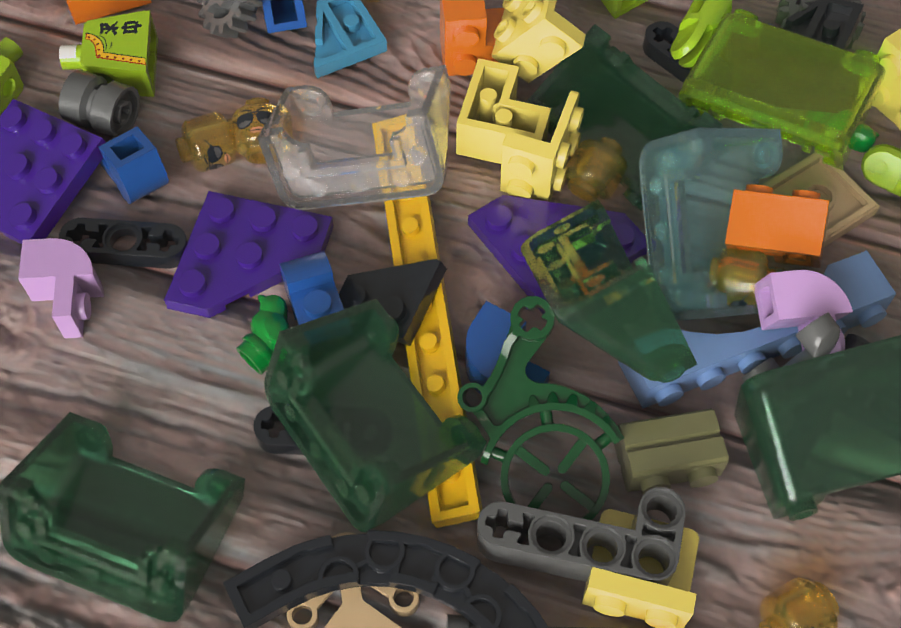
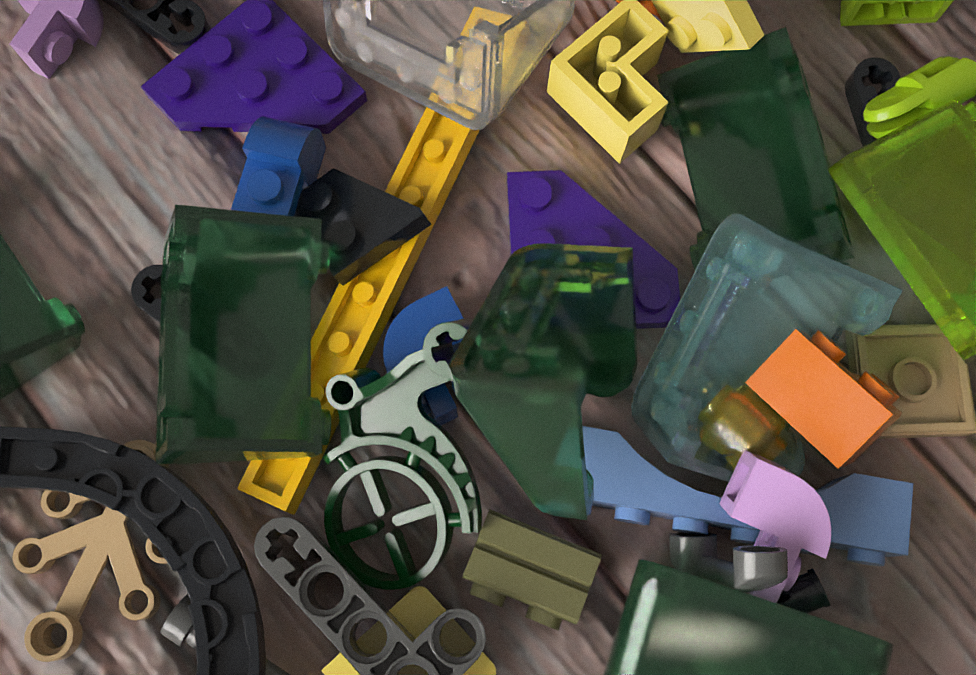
camera: 30 degrees right, 15 degrees up
(265, 328) = (214, 181): green animal -> none
(537, 167) = (617, 172): light yellow bracket -> none
(596, 169) = (680, 199): clear yellow head -> none

